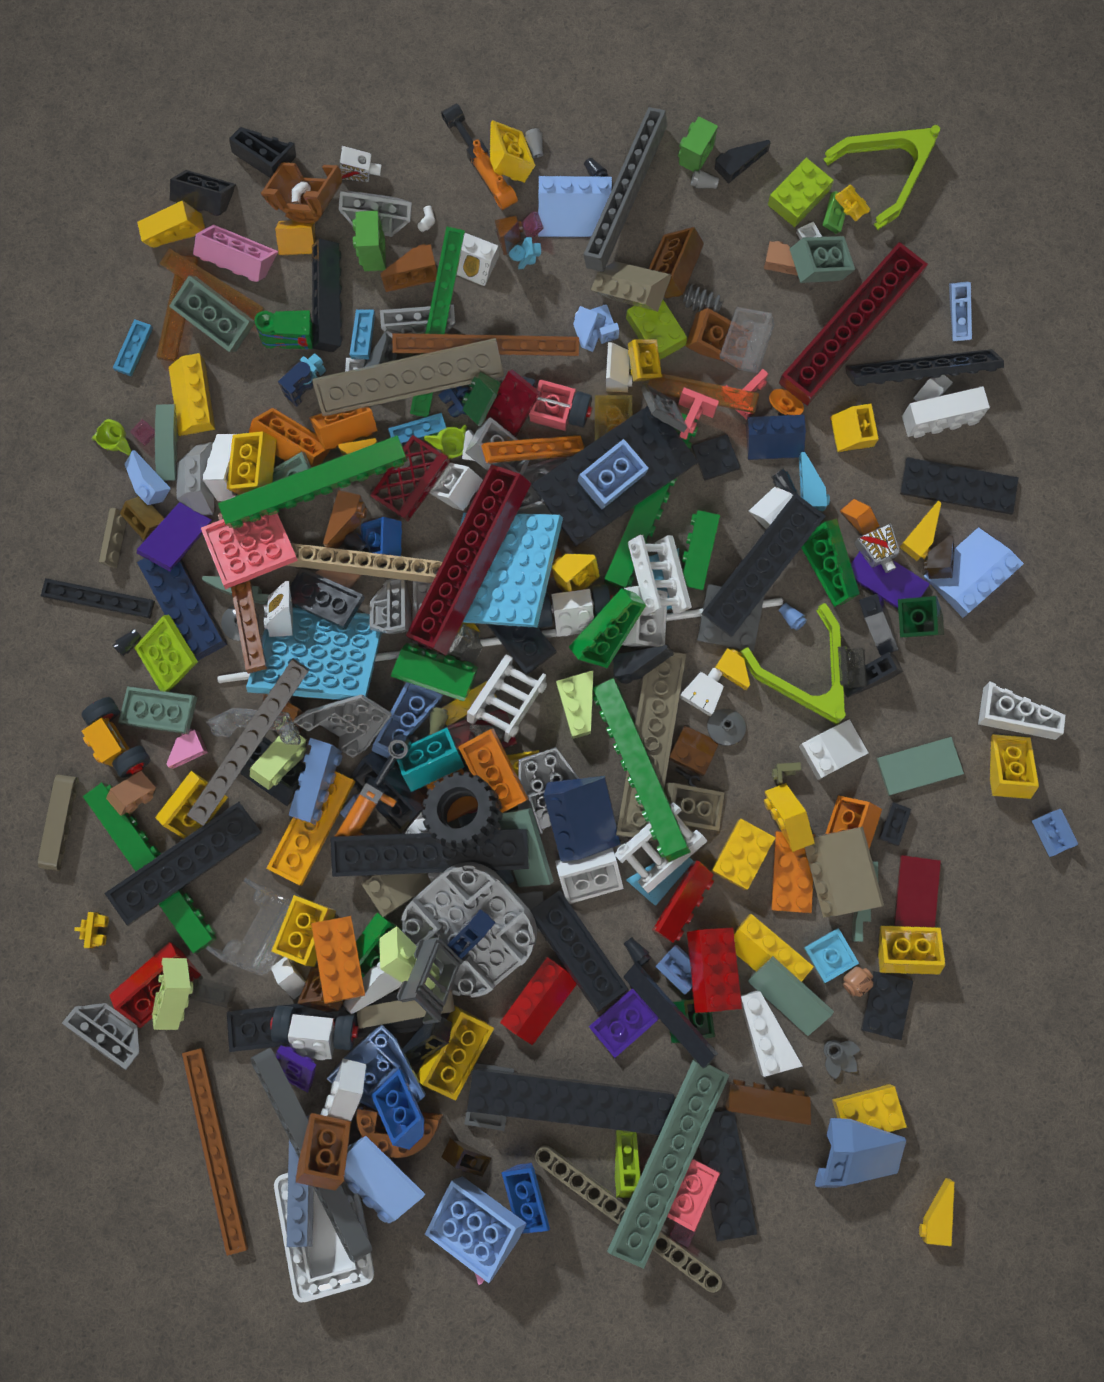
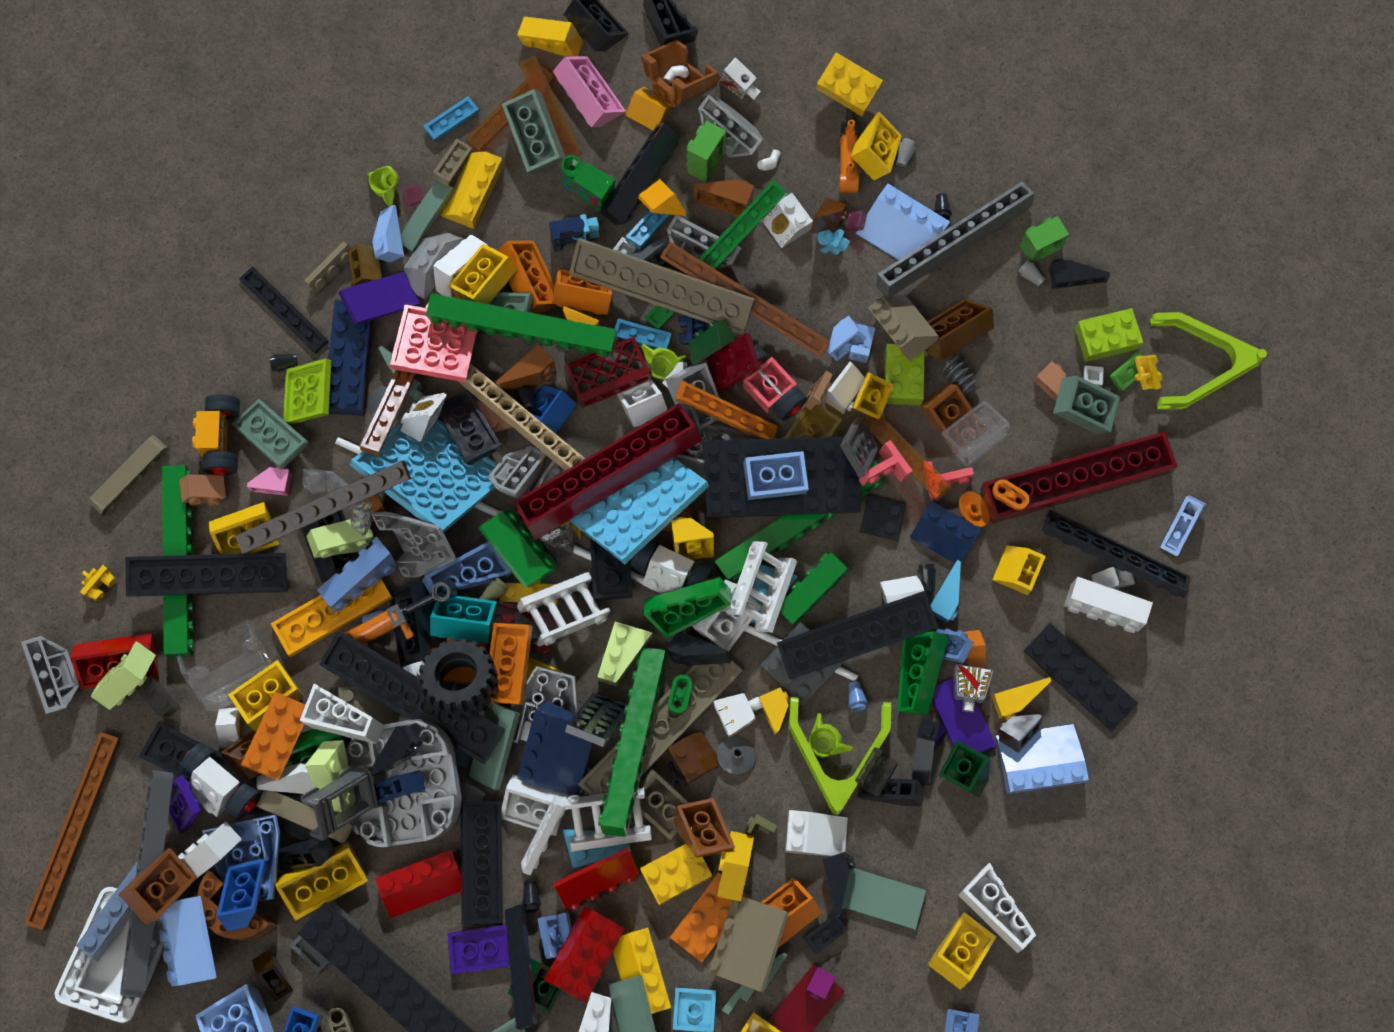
camera: 25 degrees right, 5 degrees down
(158, 383) = (451, 162): none -> dark tan plate
(360, 304) = (661, 200): none -> light orange slope
(376, 910) = (336, 716): none -> white wedge
(451, 899) = (400, 747): none -> black slope
(453, 111) = (849, 84): none -> yellow brick
(596, 383) = (815, 393): none -> medium nougat plate
(600, 771) = (597, 719): none -> black plate
(615, 895) = (540, 840): none -> white plate
(650, 707) = (679, 695): none -> green plate
(743, 804) = (703, 828): none -> dark orange slope
(792, 666) = (826, 740): none -> lime piece
(811, 370) = (1011, 493): none -> orange plate
(849, 522) = (957, 645): none -> medium blue bracket
(878, 771) = (840, 879): none -> black slope
(919, 867) = (820, 984): none -> magenta brick

